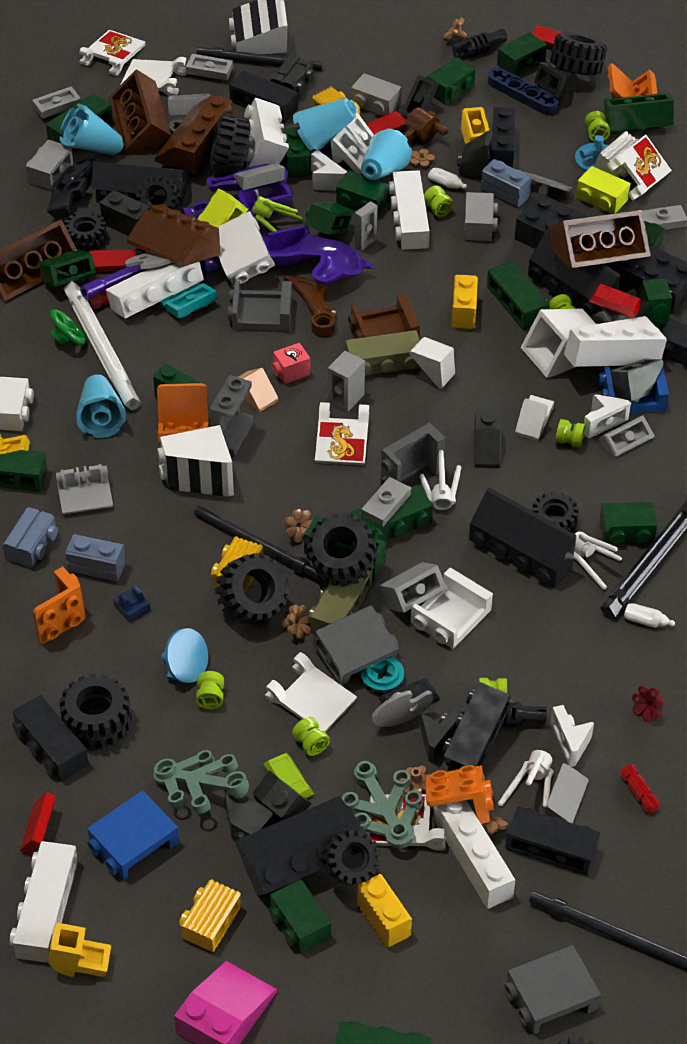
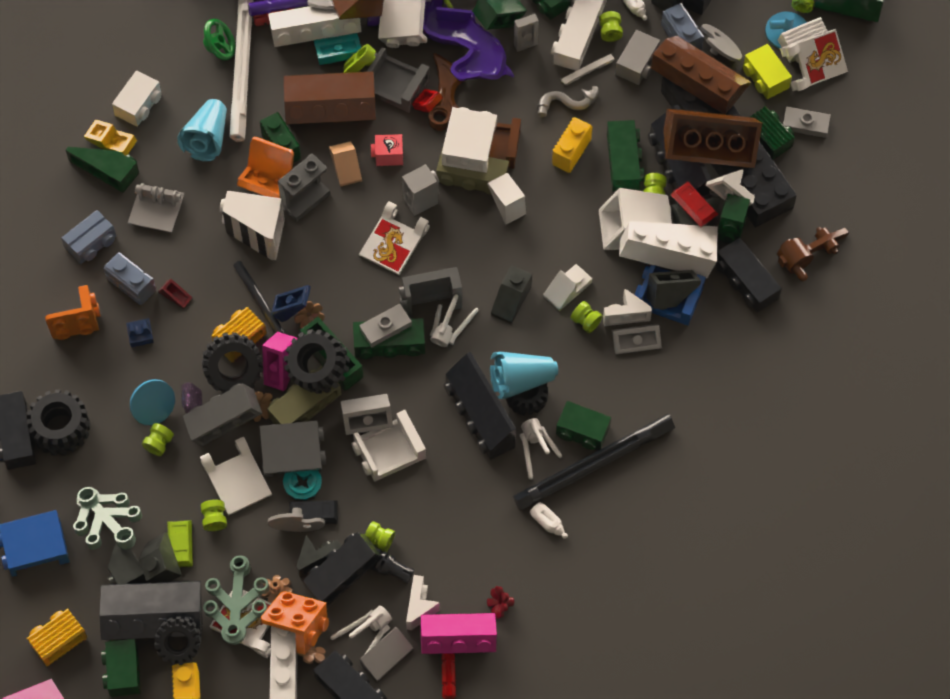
camera: 25 degrees right, 15 degrees up
(148, 557) = (175, 293): none -> dark red piece
(210, 336) = (329, 97): none -> reddish brown slope
(219, 297) = (362, 57): none -> lime plate
(223, 639) = (190, 396): none -> piece
(268, 637) = (222, 414): none -> dark grey brick
(278, 517) = (290, 303): none -> dark blue slope
(298, 569) = (273, 360): none -> dark pink slope
(303, 312) = (427, 100): none -> red tile
(371, 321) = (469, 139): none -> white panel
(427, 253) = (587, 69): none -> white piece
(453, 263) = (546, 99): none -> light grey animal
(545, 490) = (520, 372): none -> medium azure cone
(549, 201) = (699, 73): none -> reddish brown slope
(629, 744) = (458, 633): none -> dark pink brick
(637, 272) = (730, 185): none -> white slope

